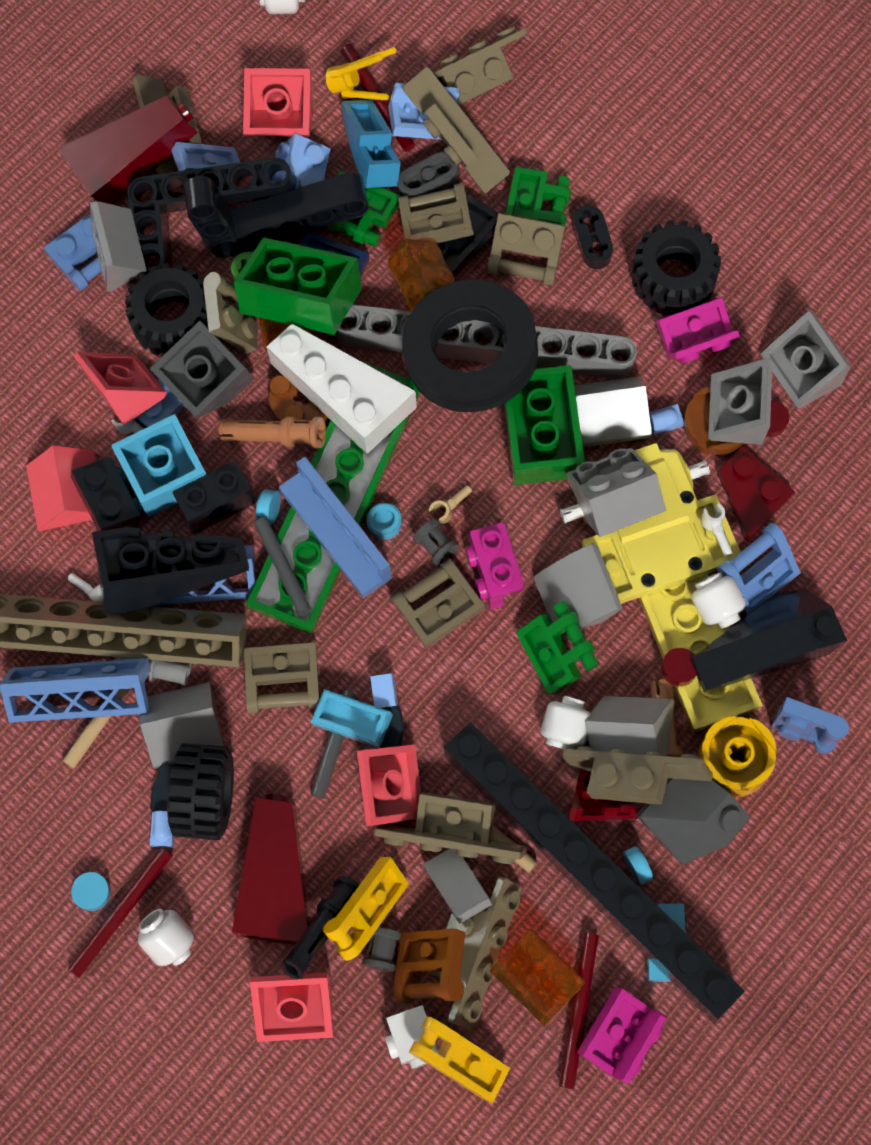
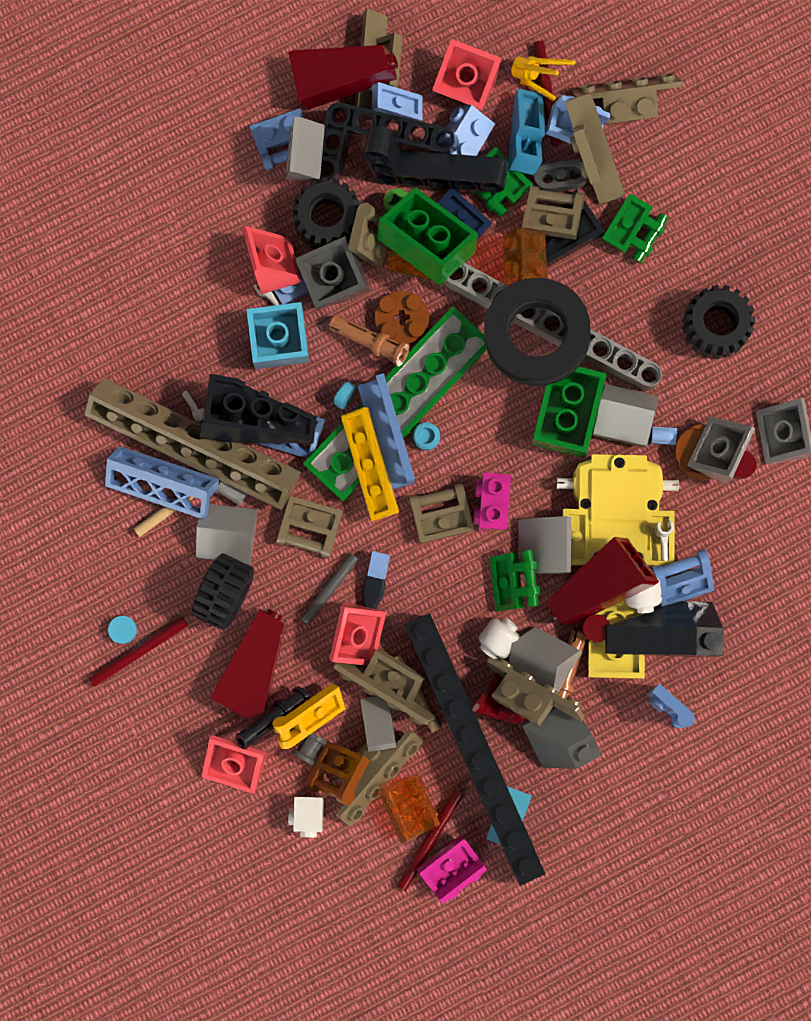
camera: 20 degrees right, 10 degrees up
(53, 490) = (203, 324): coral slope -> none
(106, 495) = (230, 344): black bracket -> none
(160, 830) = (191, 587): piece -> none
(165, 937) = (163, 683): white head -> none
(214, 497) = (308, 373): black brick -> none
(282, 566) = (339, 446): dark grey bar -> none
(328, 573) = (369, 464): none -> yellow tile
(343, 388) = (433, 329): white wedge -> none
(351, 718) = (348, 576): medium azure tile -> none
(432, 530) = (457, 476): dark grey bush -> none
(449, 505) = (479, 442): tan hand -> none
(460, 1060) = (334, 844): yellow plate -> none
(530, 238) = (615, 255): dark tan plate -> none
(599, 235) = (661, 270): black beam -> none
(616, 491) = (600, 484): light grey slope -> none
(637, 865) = (509, 757): medium azure tile -> none
(665, 607) = (602, 582): none -> dark red slope
(696, 330) = (714, 377): dark pink bracket -> none
(734, 736) = (623, 717): yellow brick -> none
(752, 491) = (705, 515): dark red wing -> none

